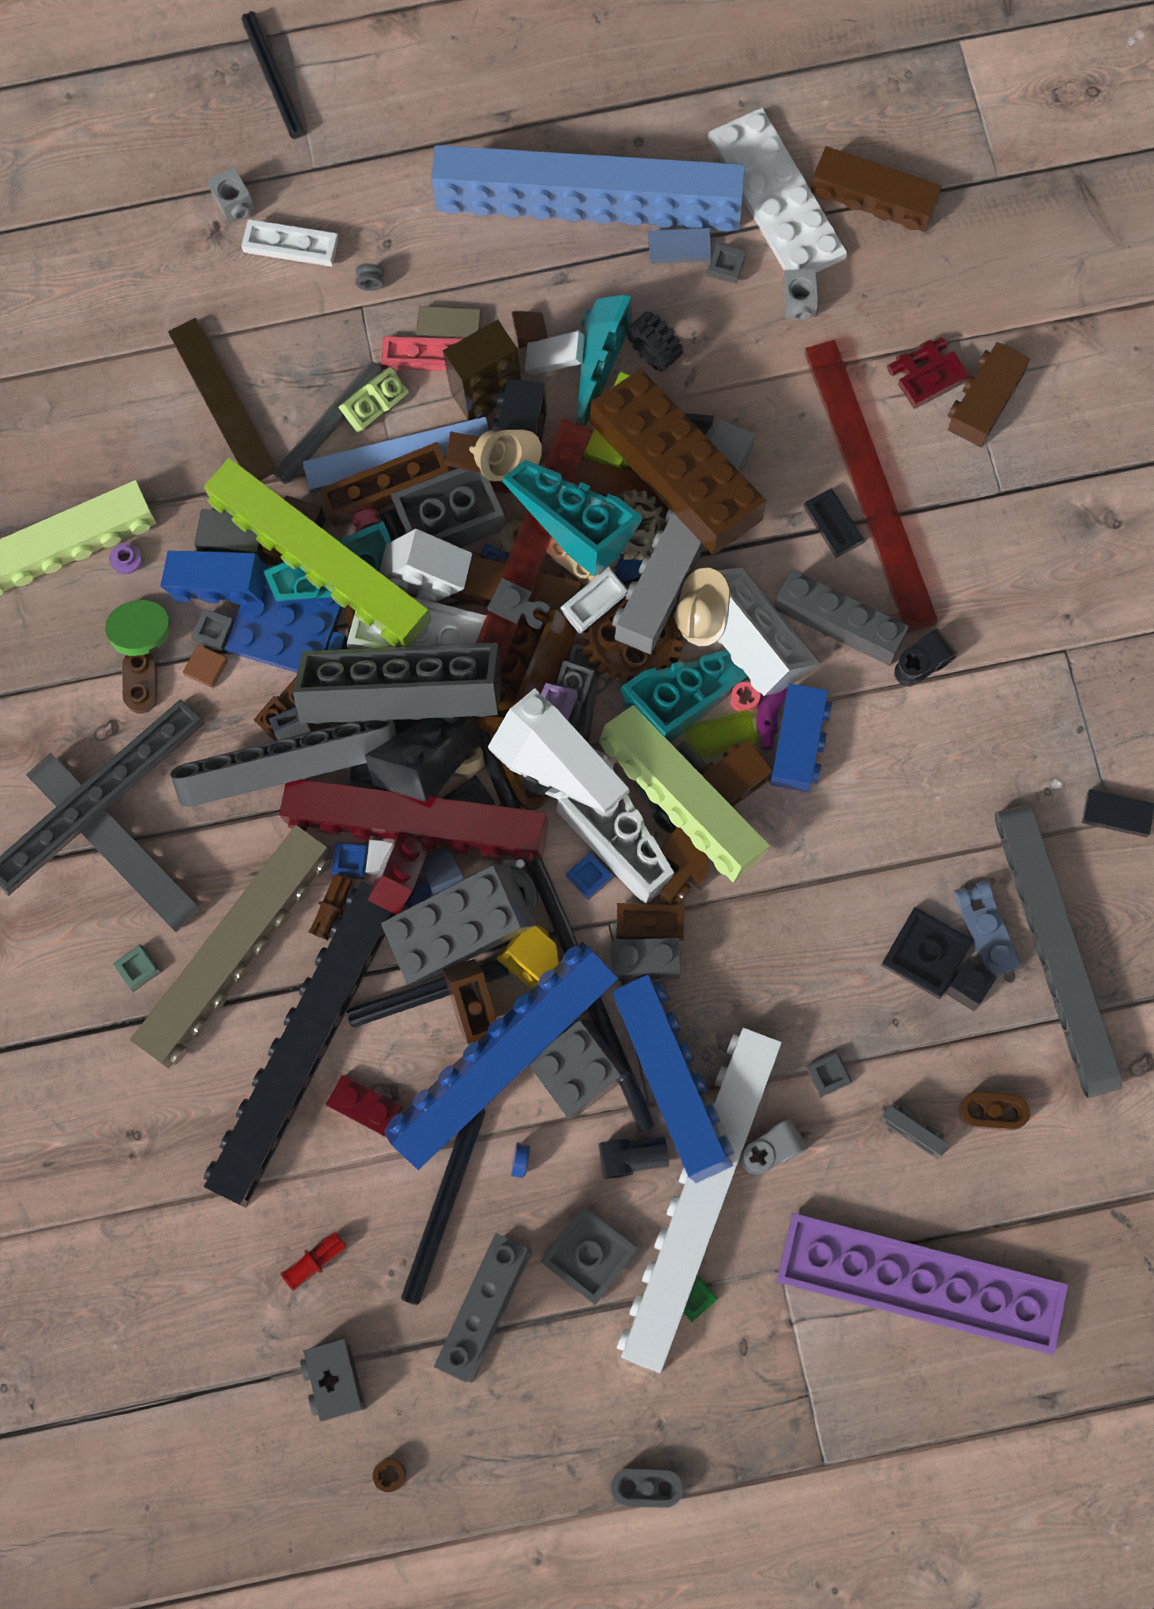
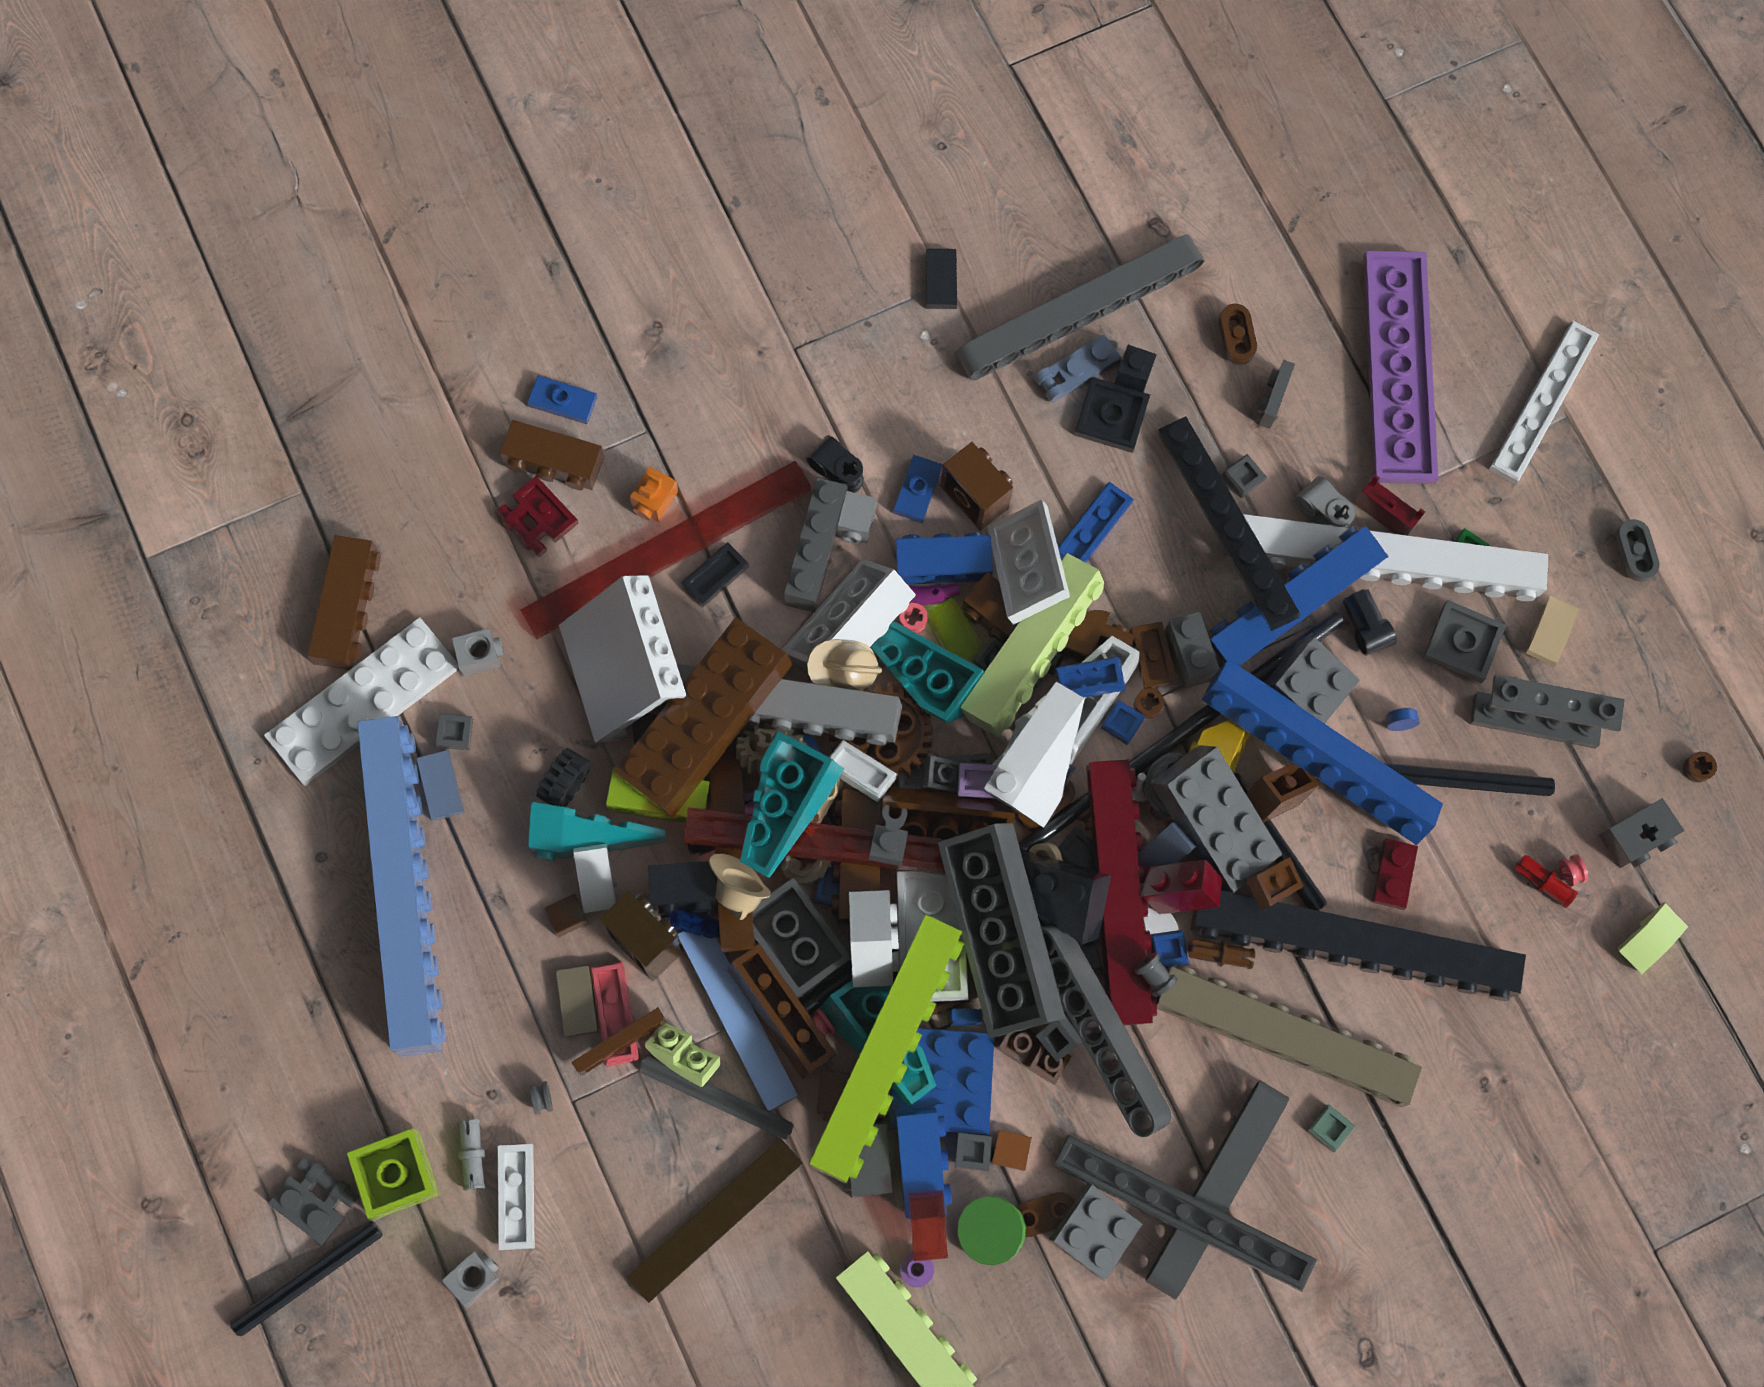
camera: 115 degrees left, 0 degrees up
(107, 718) = (1095, 1231): none -> plate
(155, 567) = (928, 1225): none -> clear red tile
(223, 1355) = (1653, 938): none -> yellowish green slope
(315, 1292) = (1573, 870): none -> coral bush
(319, 822) = (1155, 974): none -> dark grey bush
(332, 82) = (308, 1210): none -> dark grey plate
(335, 146) = (393, 1174): none -> lime brick
(337, 215) = (471, 1154): none -> light grey pin
(379, 968) = (1274, 883): none -> reddish brown plate
(397, 344) = (619, 1042): none -> reddish brown tile
(485, 414) = (695, 924): none -> clear blue axle
(578, 1358) = (1552, 631): none -> tan slope
(592, 909) = (1156, 695): none -> reddish brown bush
(629, 833) = (1092, 677): none -> blue plate
(755, 402) = (621, 657): none -> white panel
(758, 1221) = (1388, 508): none -> dark red hinge
(770, 1027) = (1229, 524): none -> black plate
(771, 807) = (1028, 562): none -> white plate
(805, 901) = (1095, 523): none -> blue tile
(848, 1442) = (1543, 402): none -> white tile
(861, 663) = (856, 517): none -> light grey brick
(868, 782) = (976, 485): none -> reddish brown brick
(883, 734) = (918, 488): none -> blue plate
(927, 478) = (653, 494): none -> orange brick
(1048, 417) = (562, 399): none -> blue plate

